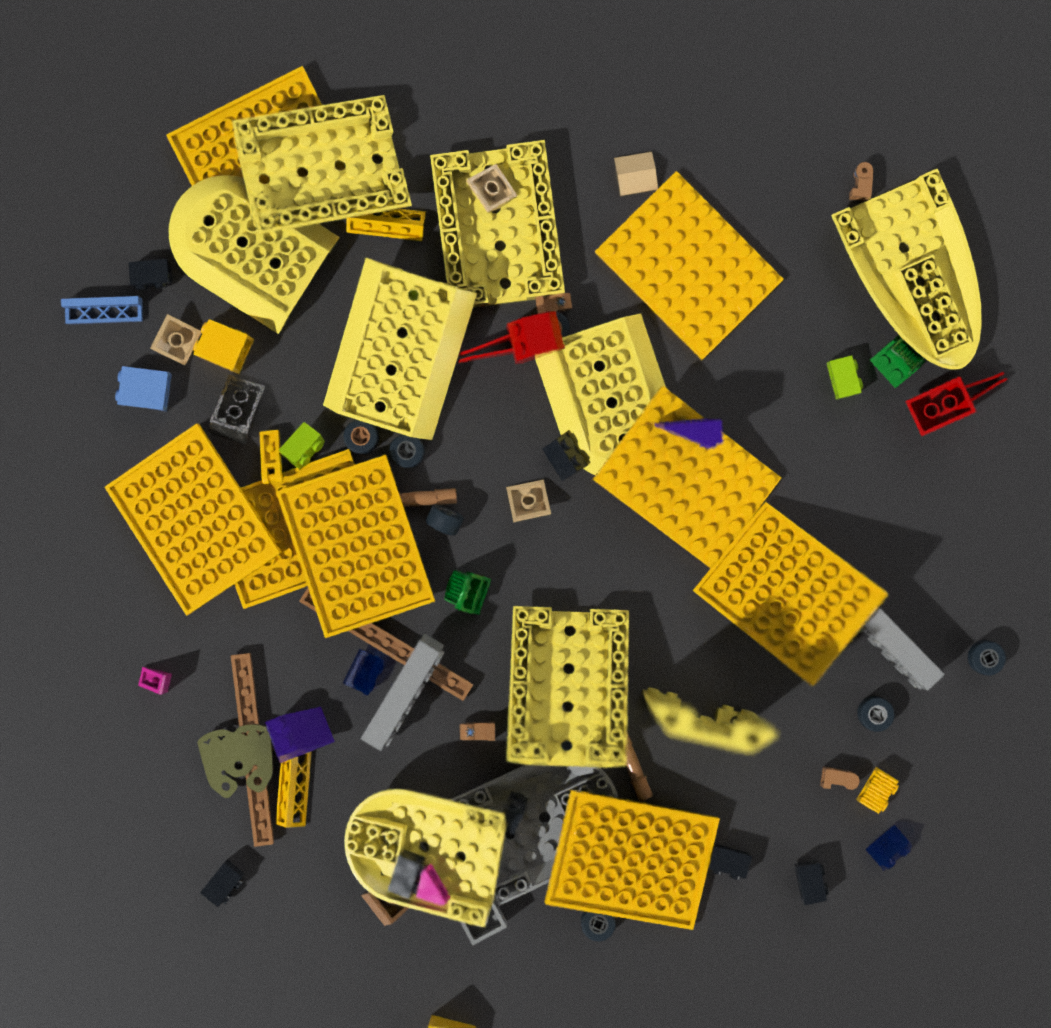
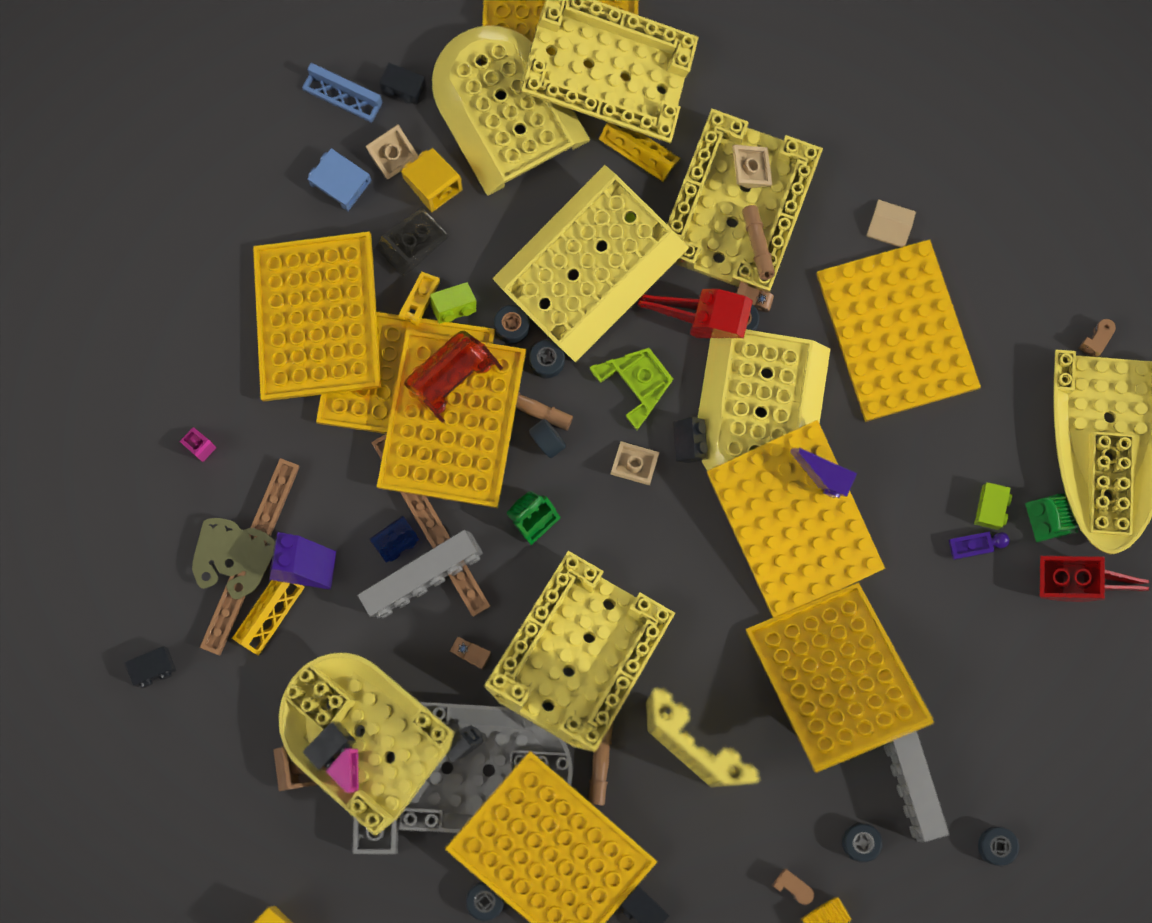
camera: 20 degrees right, 10 degrees down
(329, 510) = (447, 370): none -> clear red windscreen
(496, 421) = (644, 377): none -> lime wing
(533, 255) = (758, 242): none -> medium nougat piece
(847, 416) = (977, 544): none -> dark purple plate

